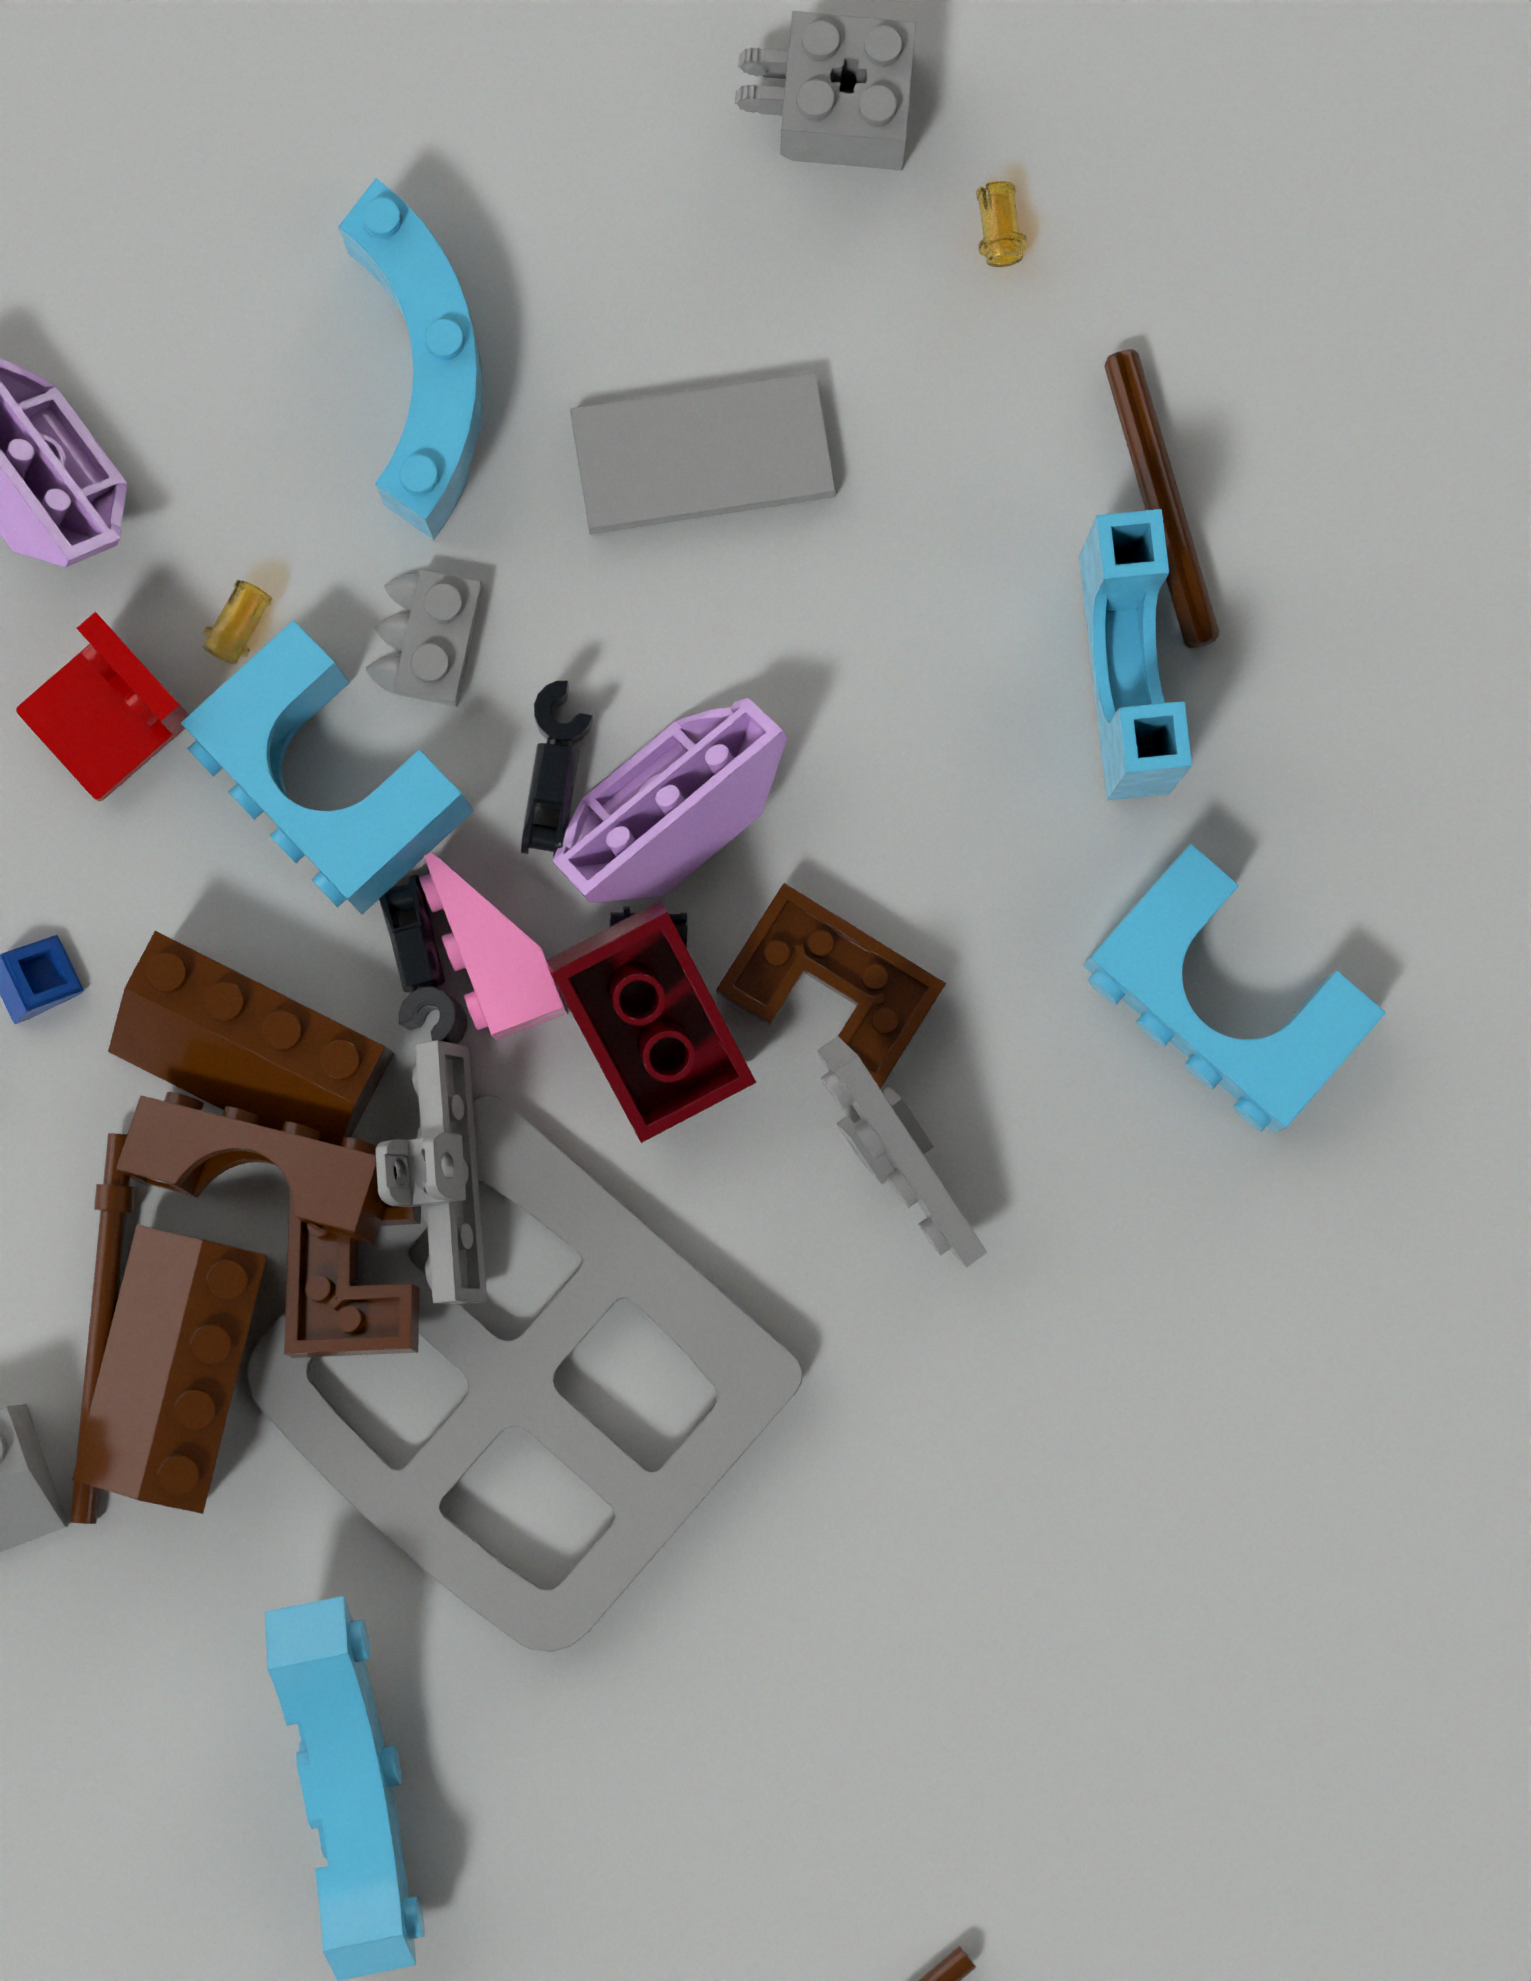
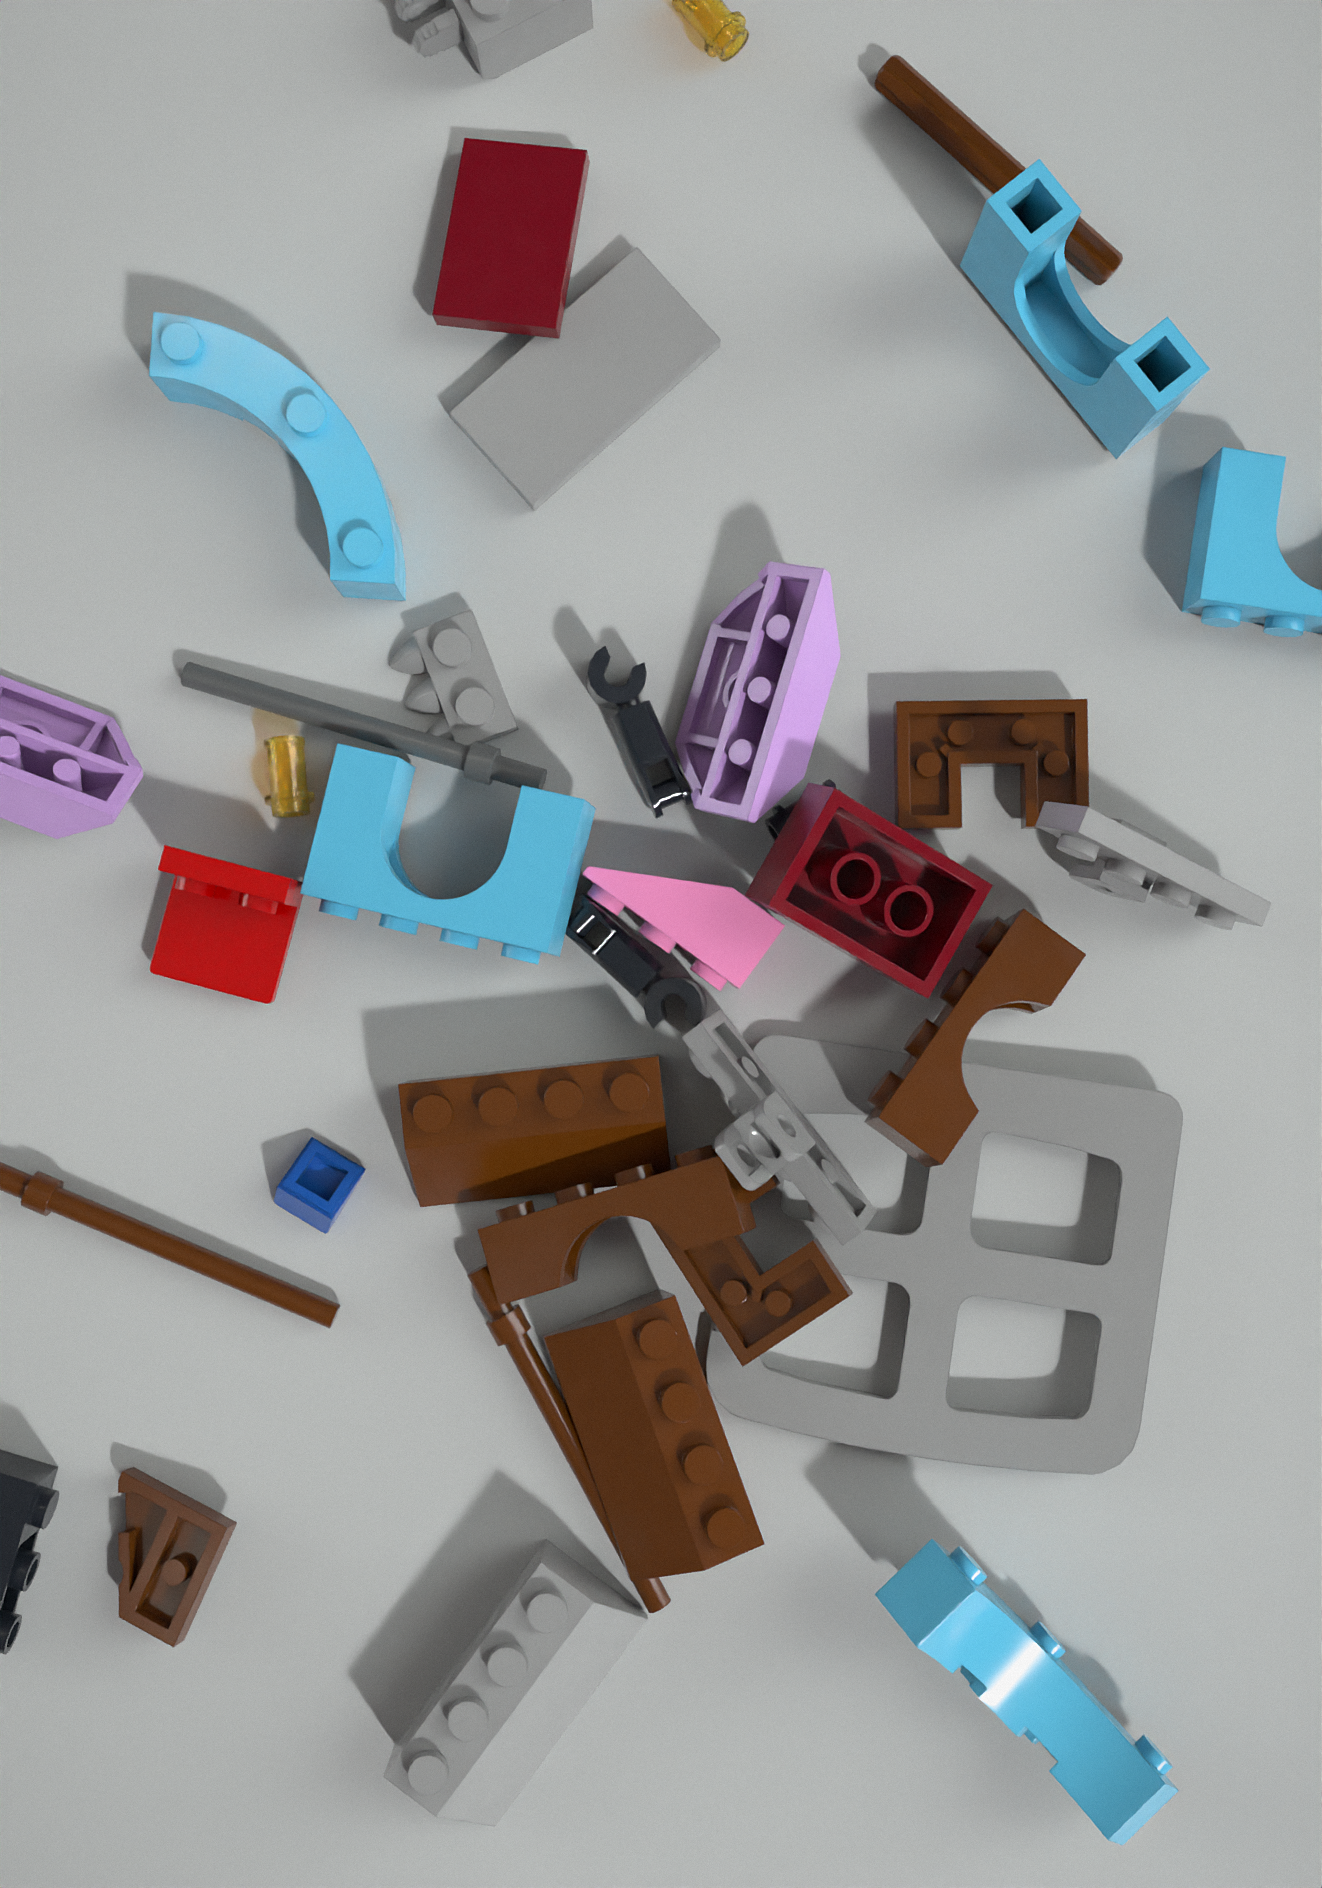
camera: 30 degrees left, 5 degrees up
(400, 708) = (478, 761): none -> dark grey bar
(715, 299) = (511, 237): none -> dark red tile
(736, 1175) = (927, 1101): none -> reddish brown arch

